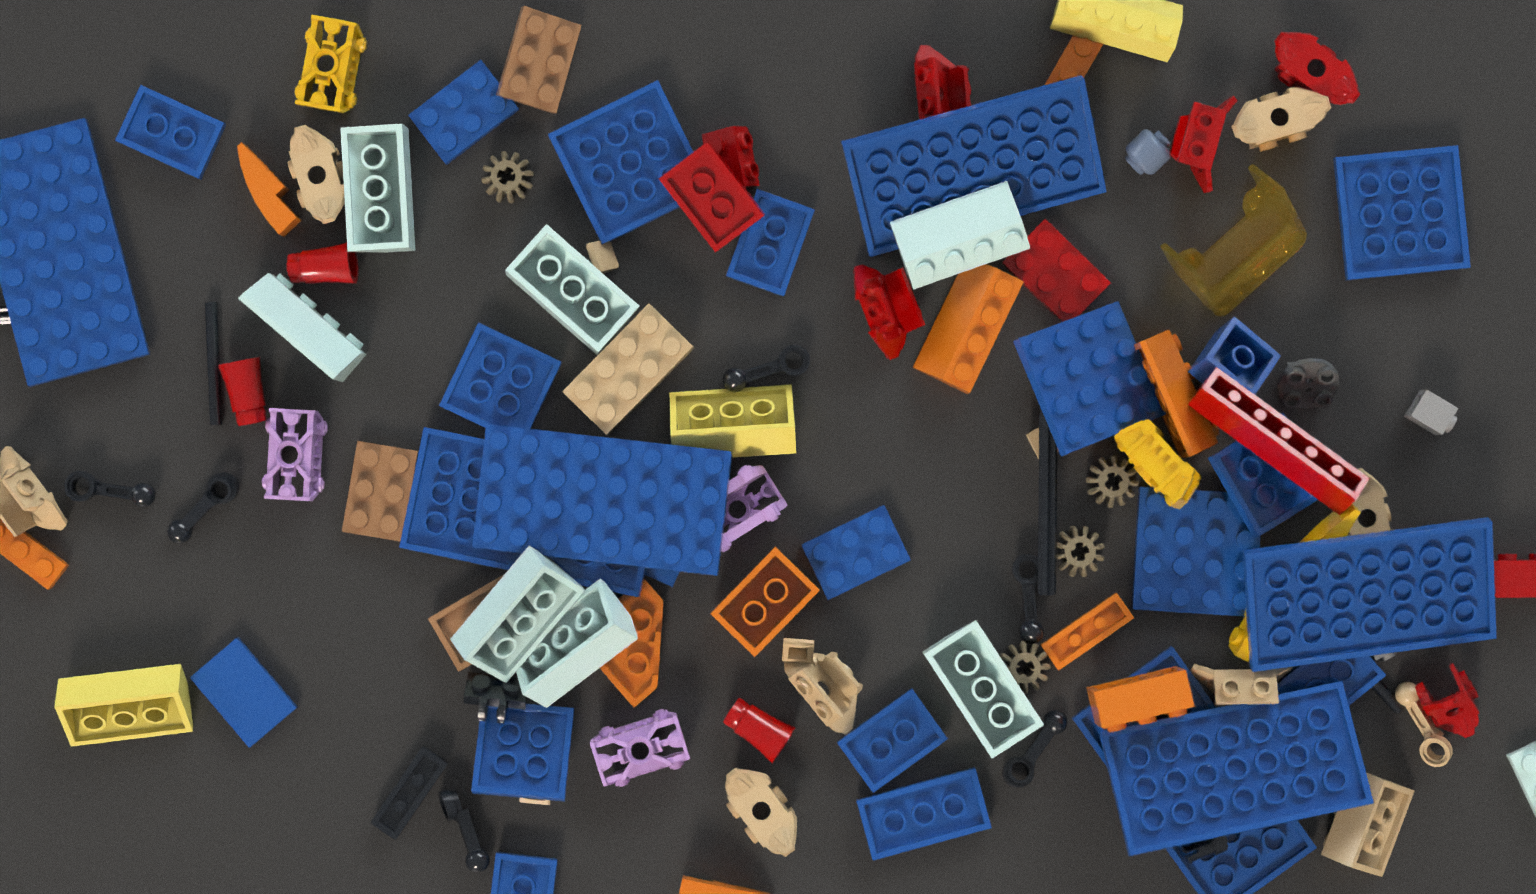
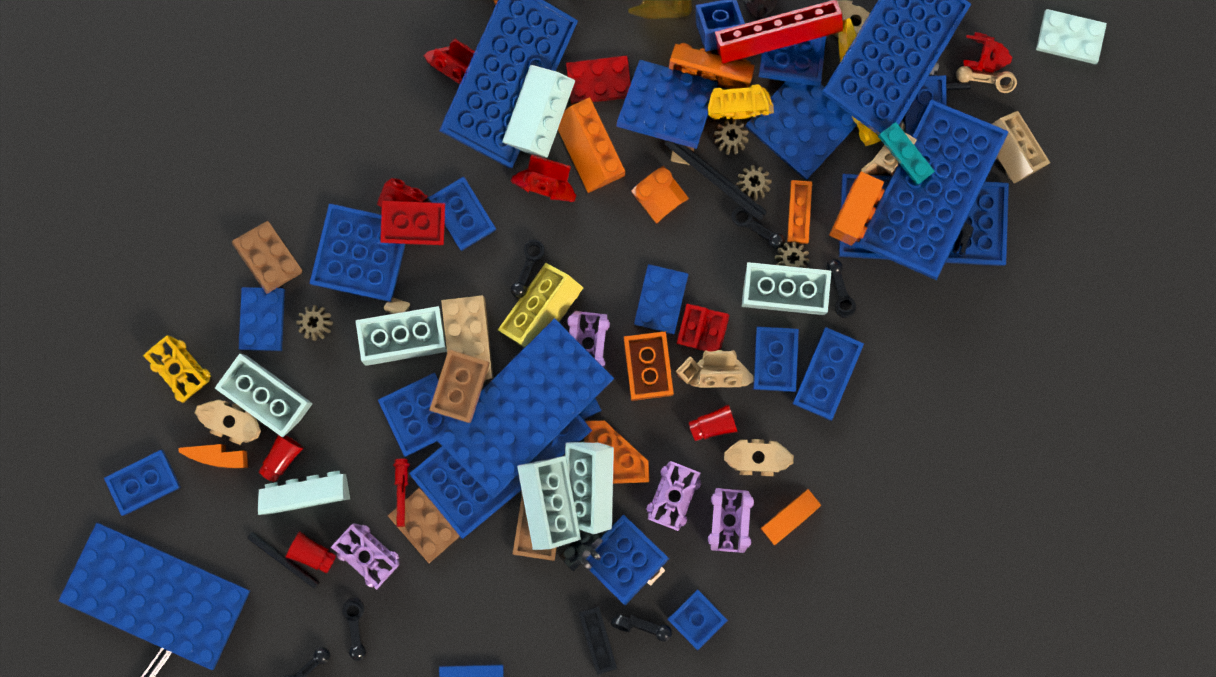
camera: 55 degrees left, 5 degrees down
(407, 425) = (401, 480): none -> red pin
(565, 406) = (459, 386): none -> medium nougat plate
(668, 851) = (741, 524): none -> lavender piece
(860, 628) = (702, 328): none -> red slope
(977, 452) = (659, 194): none -> orange slope
(1250, 704) = (906, 153): none -> teal plate

